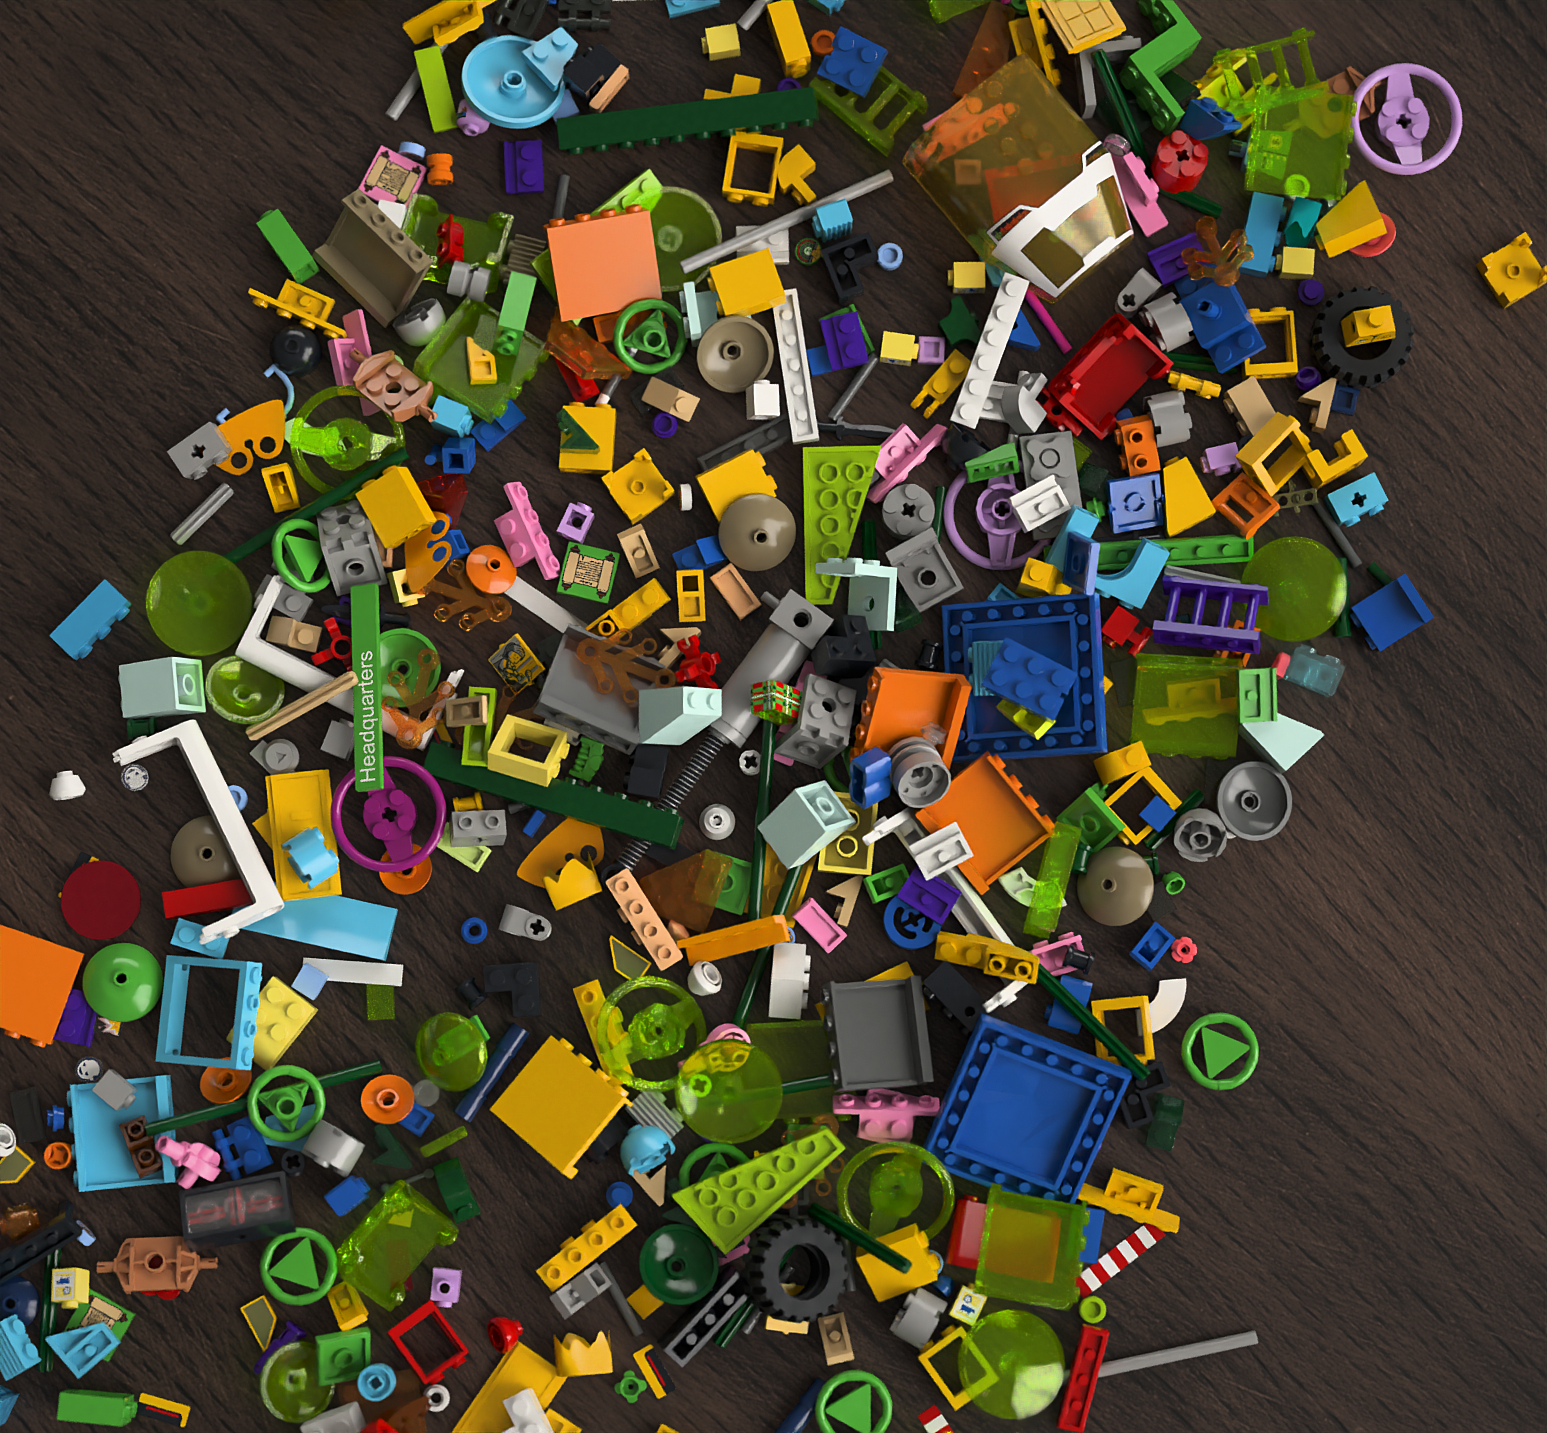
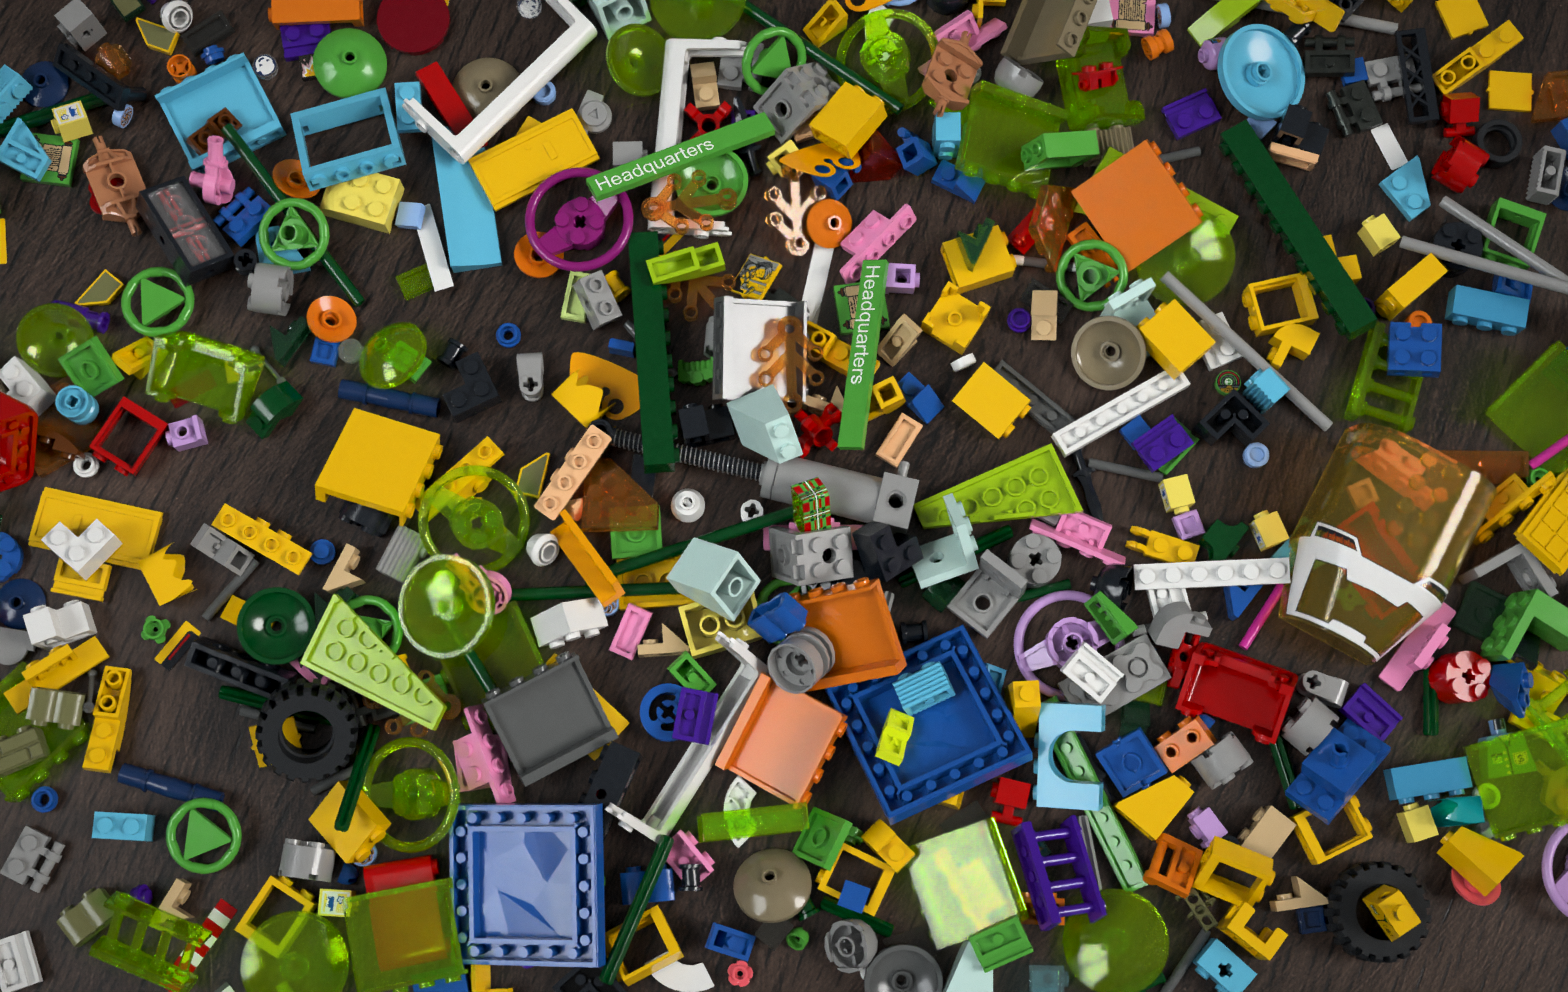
camera: 65 degrees right, 5 degrees down
(115, 1090) = (253, 91): light grey brick -> none
(303, 705) = (644, 112): tan axle -> none
(310, 857) = (513, 166): medium azure brick -> none
(348, 1195) = (233, 317): blue brick -> none
(444, 1141) = (311, 380): clear neon green tile -> none
(467, 711) = (693, 245): tan slope -> none
(468, 281) = (1070, 98): light grey wheel -> none
(480, 364) = (1003, 141): yellow tile -> none
(503, 1333) = (162, 500): red brick -> none
(523, 768) = (696, 292): light yellow window -> none
(550, 55) = (1297, 90): medium azure wing -> none
(642, 590) = (863, 355): none -> bright green tile
(645, 1148) = (366, 552): medium azure cylinder -> none
(747, 519) = (972, 425): dark tan dish -> none
(762, 401) = (1077, 394): white brick -> none
(835, 1338) = (262, 794): tan slope -> none
(933, 733) = (842, 660): clear plate -> none
(941, 851) = (738, 709): white plate -> none
(988, 954) = (662, 792): yellow slope -> none
(1028, 680) = (925, 723): blue piece -> none
(1080, 859) = (784, 841): dark green bush -> none
(1081, 563) = (1053, 729): blue plate -> none
(1096, 507) = (1111, 730): bright green plate -> none
(1116, 145) = (1449, 614): clear tile -> none
(1120, 106) = (1483, 605): dark green axle -> none
(1202, 387) = (1264, 783): yellow plate -> none
(1226, 272) = (1380, 756): clear orange plant -> none
(1281, 663) = (1039, 958): coral tile -> none
(1308, 378) = (1316, 877): dark purple plate -> none
(1310, 292) = (1396, 848): dark purple plate -> none

